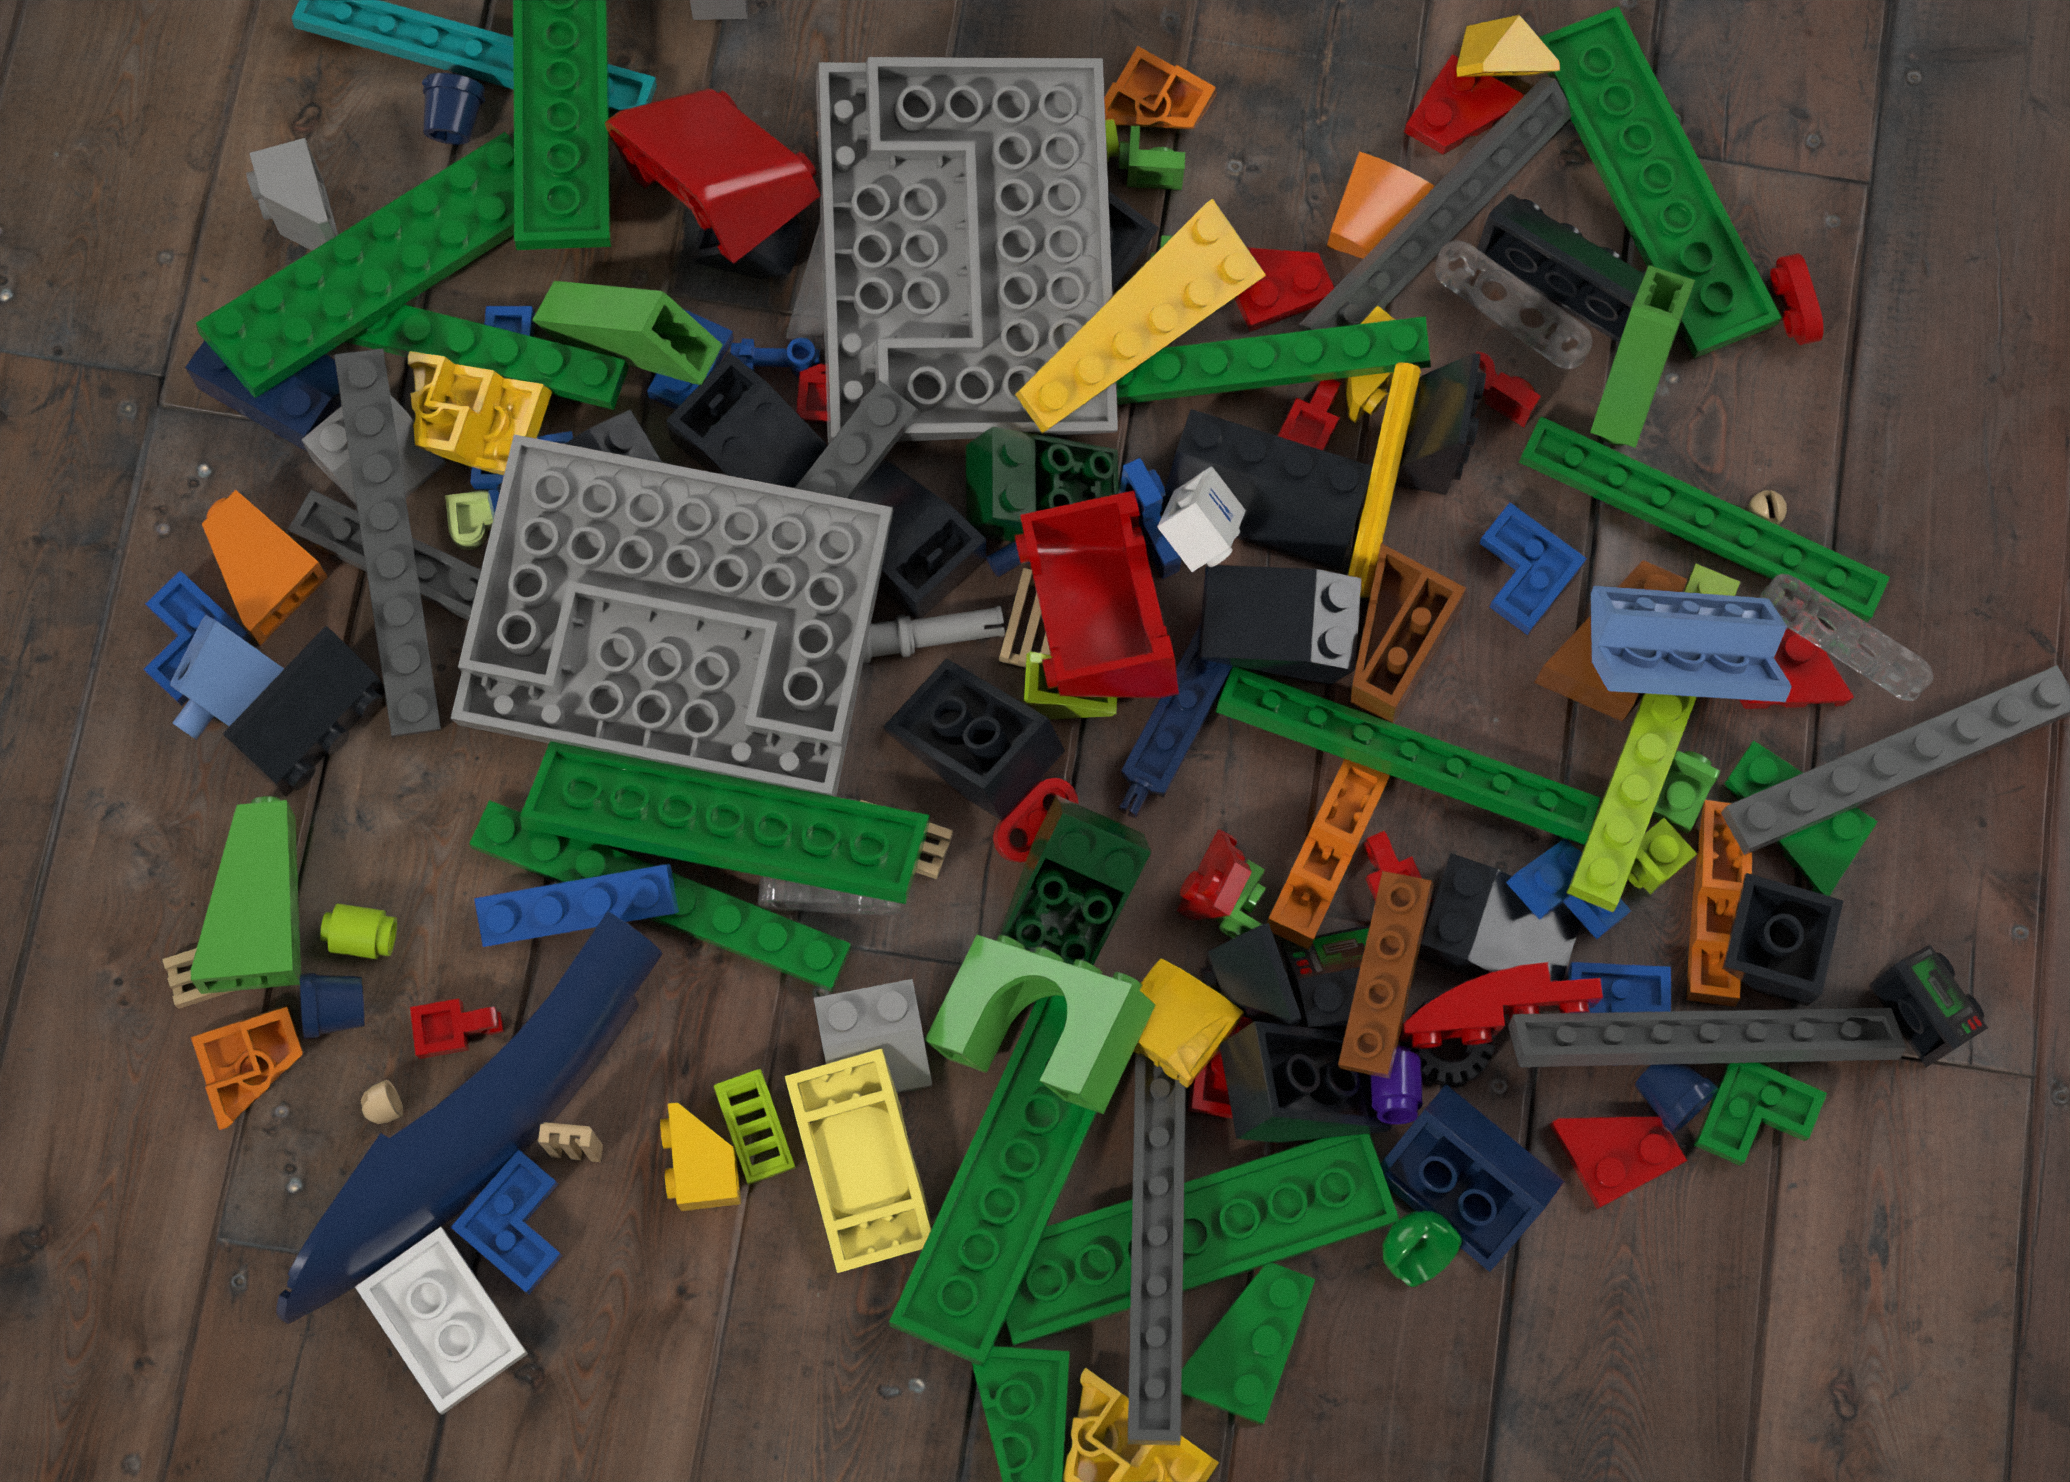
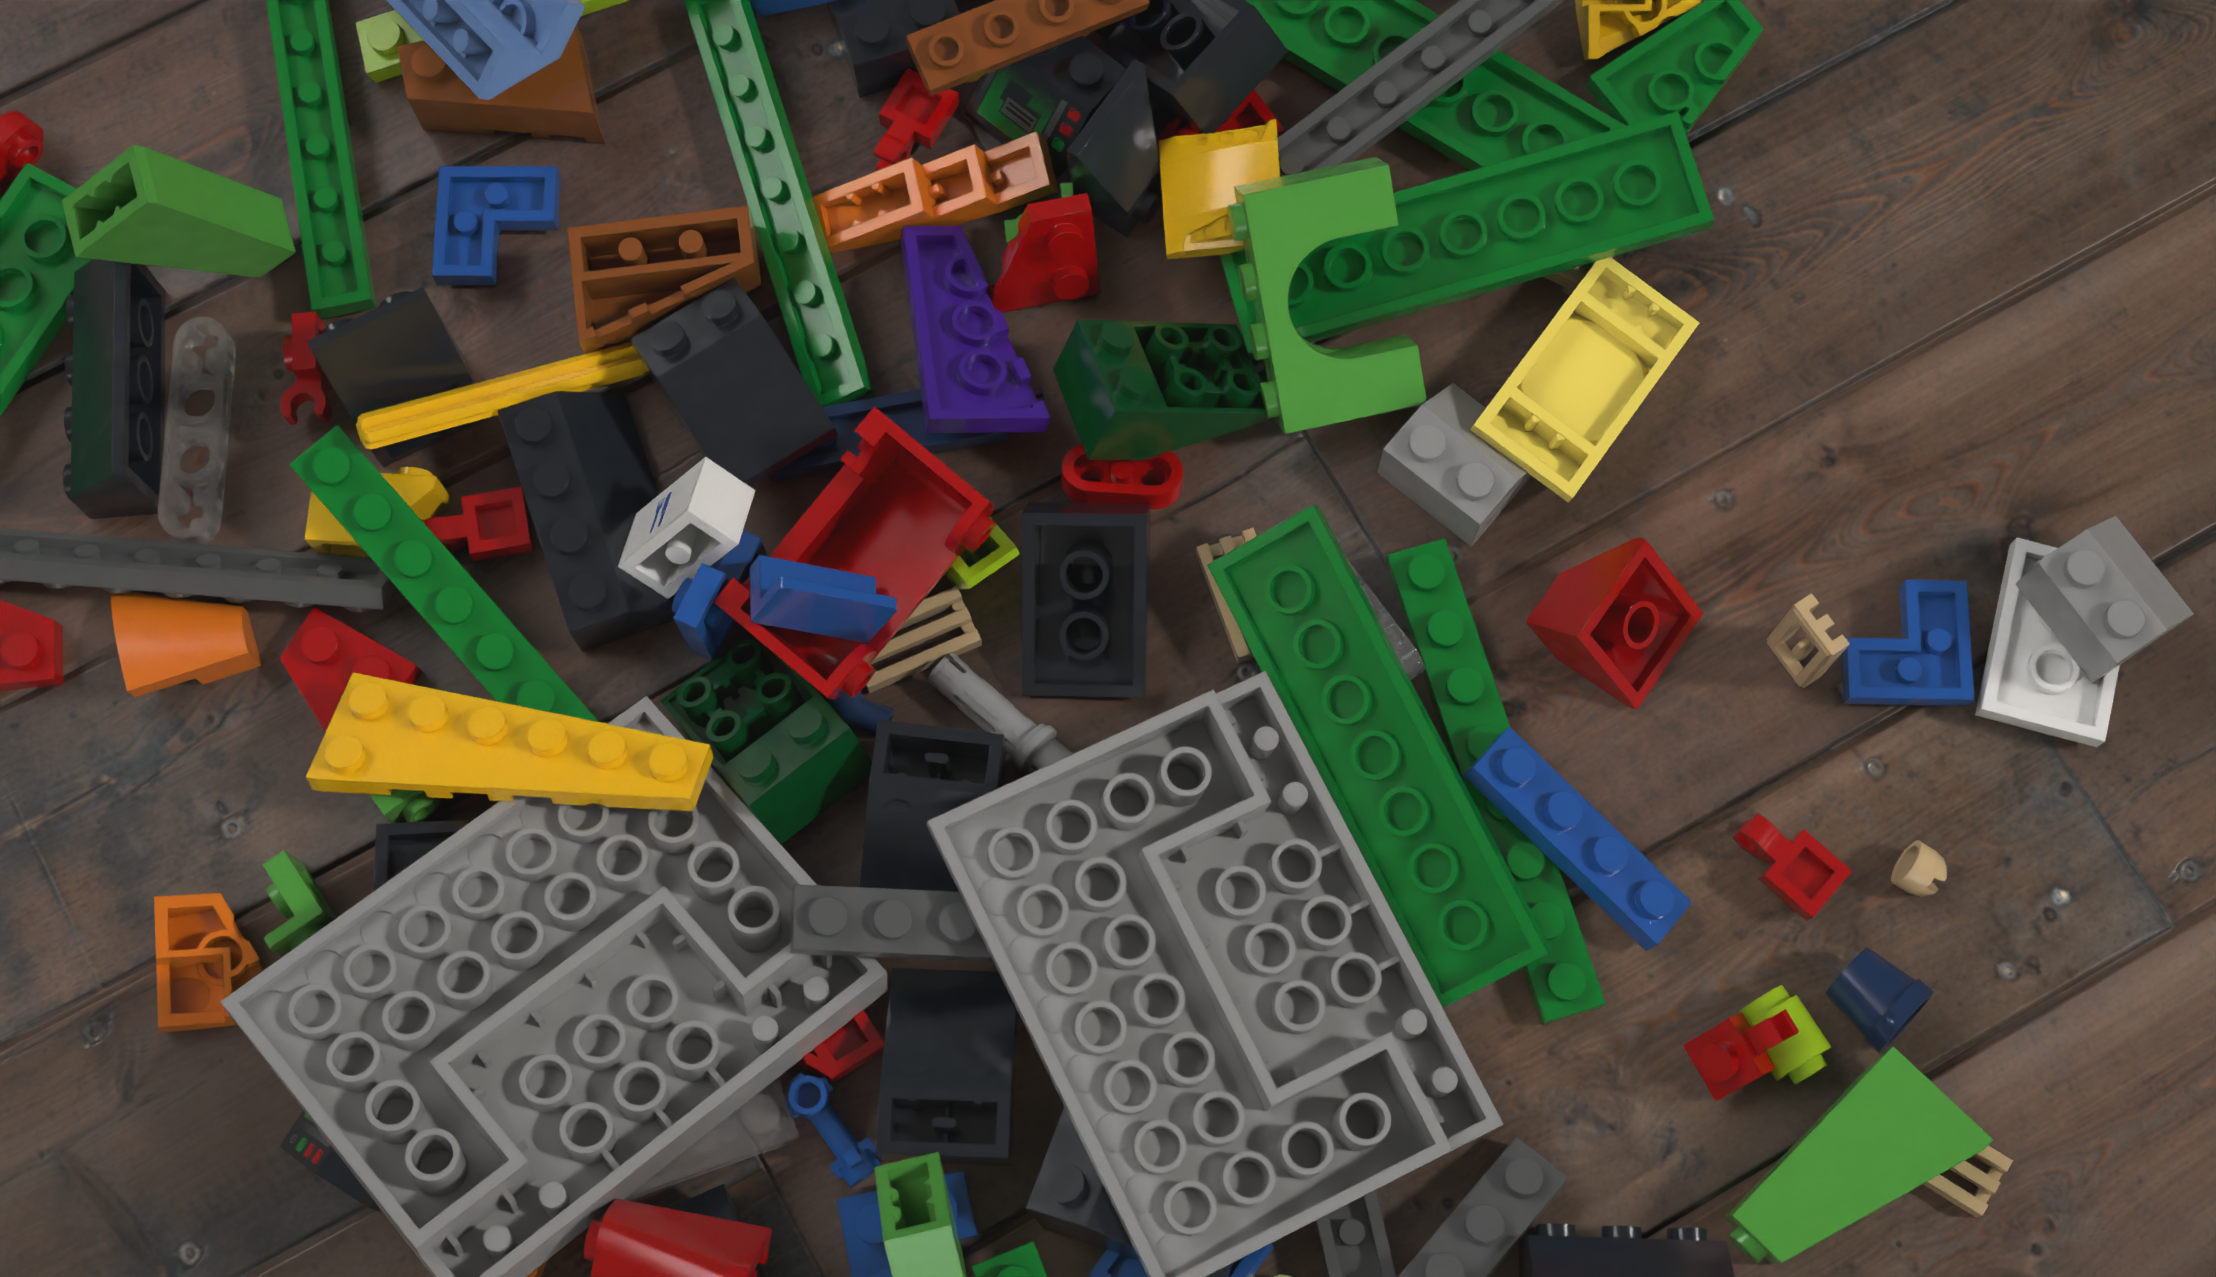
camera: 125 degrees left, 0 degrees up
(245, 1060) = (1995, 1043): orange slope -> none
(374, 888) = (1735, 1052): none -> red plate
(435, 1365) = (2103, 597): none -> light grey slope
(455, 1149) = (1858, 742): dark blue slope -> none
(687, 1044) = (1617, 619): none -> red slope
(703, 1163) = (1712, 517): yellow slope -> none
(740, 1085) = (1596, 538): lime slope -> none
(1089, 553) = (817, 599): none -> blue panel
(1196, 780) = (961, 342): none -> dark purple wing
(1759, 506) = (259, 56): tan hinge -> none

